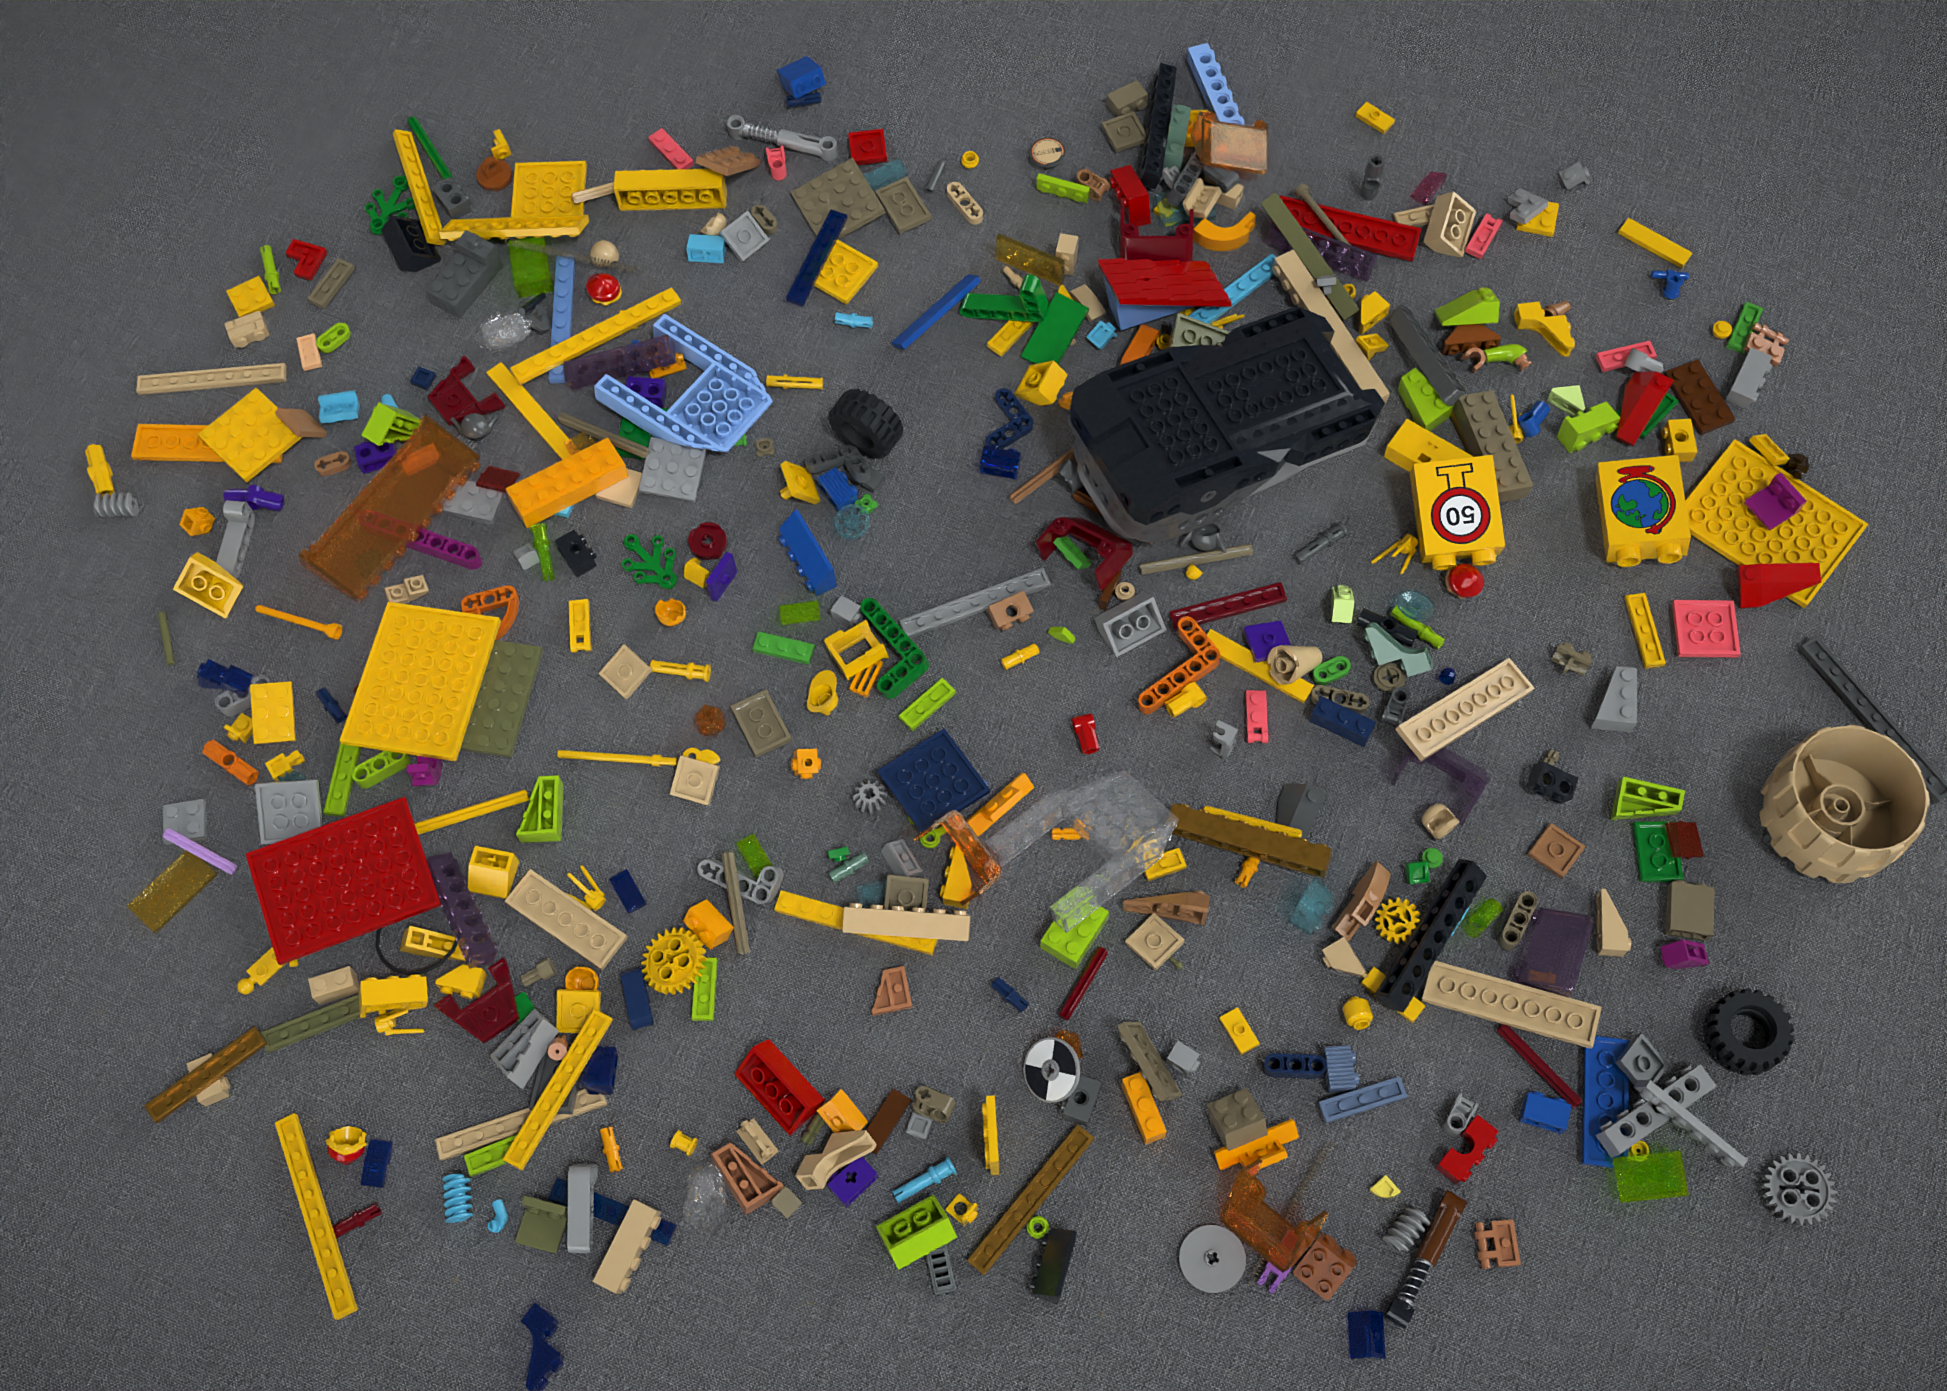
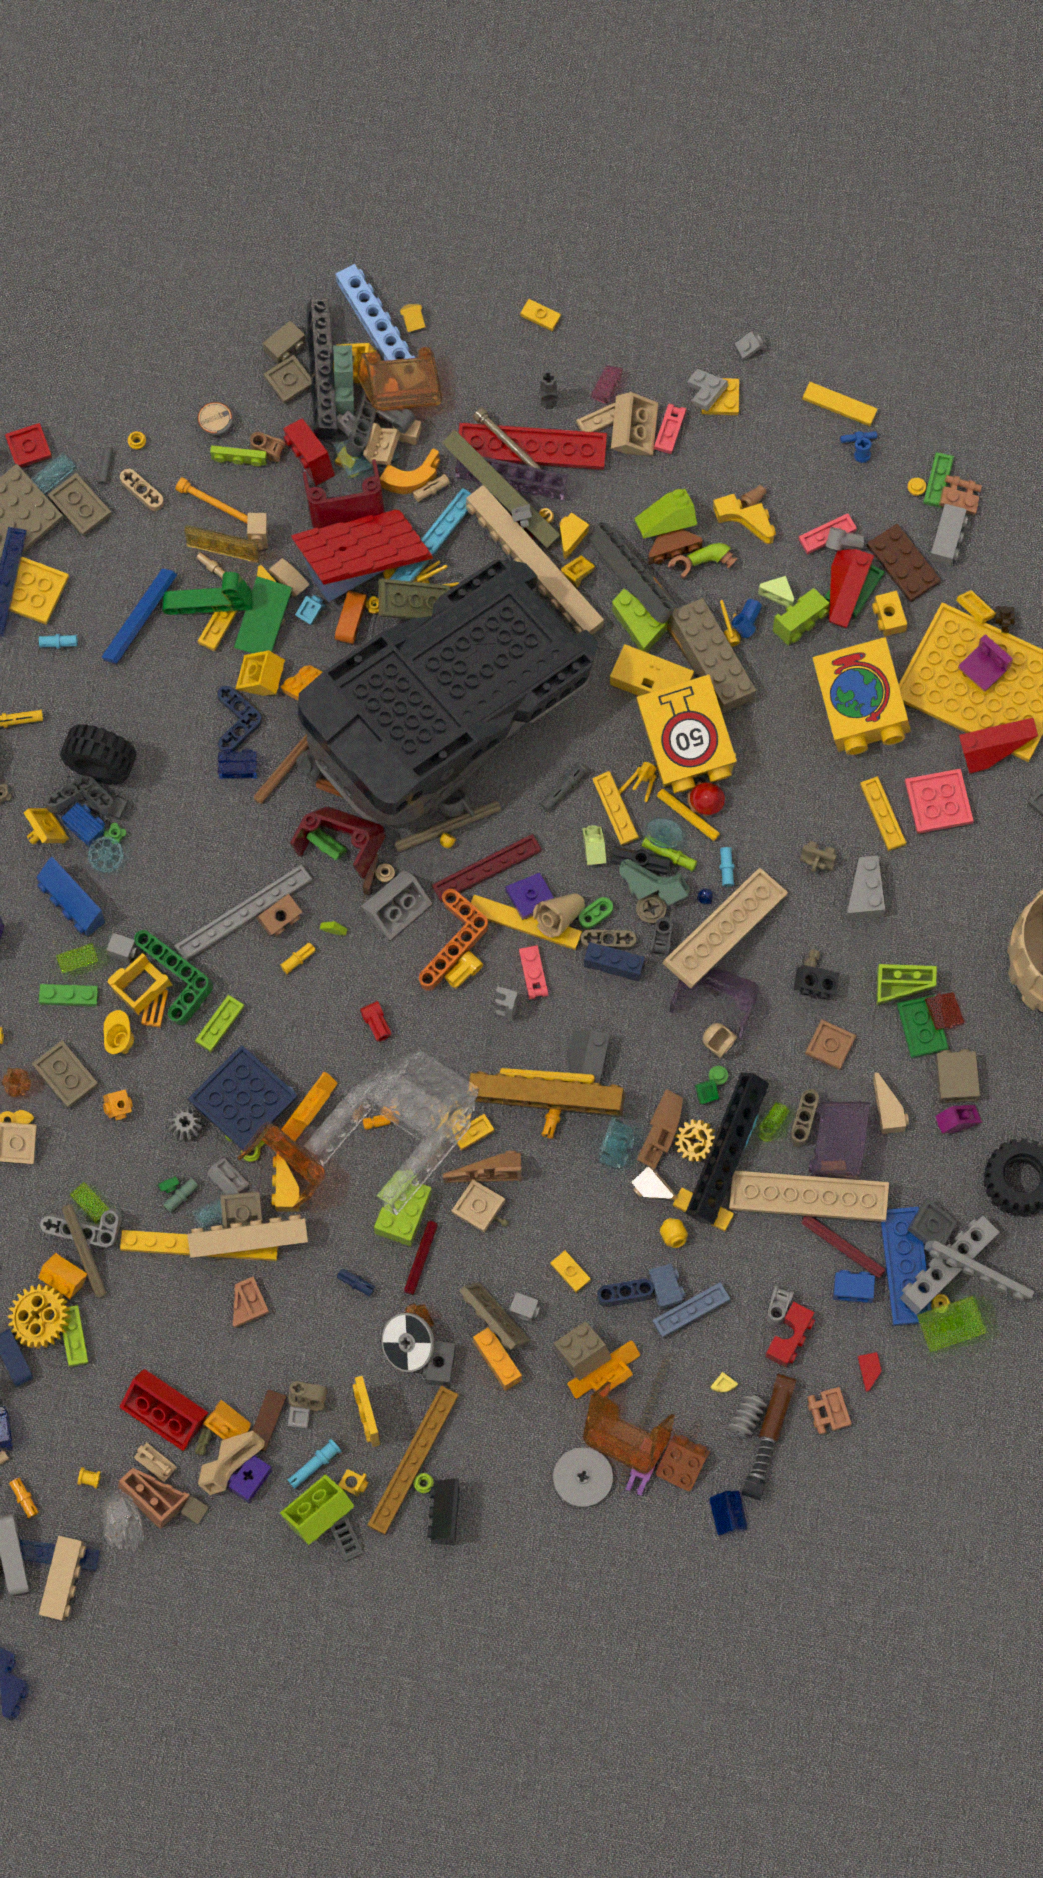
camera: 15 degrees left, 5 degrees up
(1005, 206) = (184, 486): none -> light orange piece
(1241, 248) = (431, 488): none -> tan pin
(1253, 98) = (412, 317): none -> yellow tile
(1369, 573) = (615, 808): none -> yellow tile
(1443, 593) = (688, 814): none -> yellow axle
(1474, 651) = (727, 867): none -> medium azure pin
(1549, 1207) = (870, 1369): none -> red tile

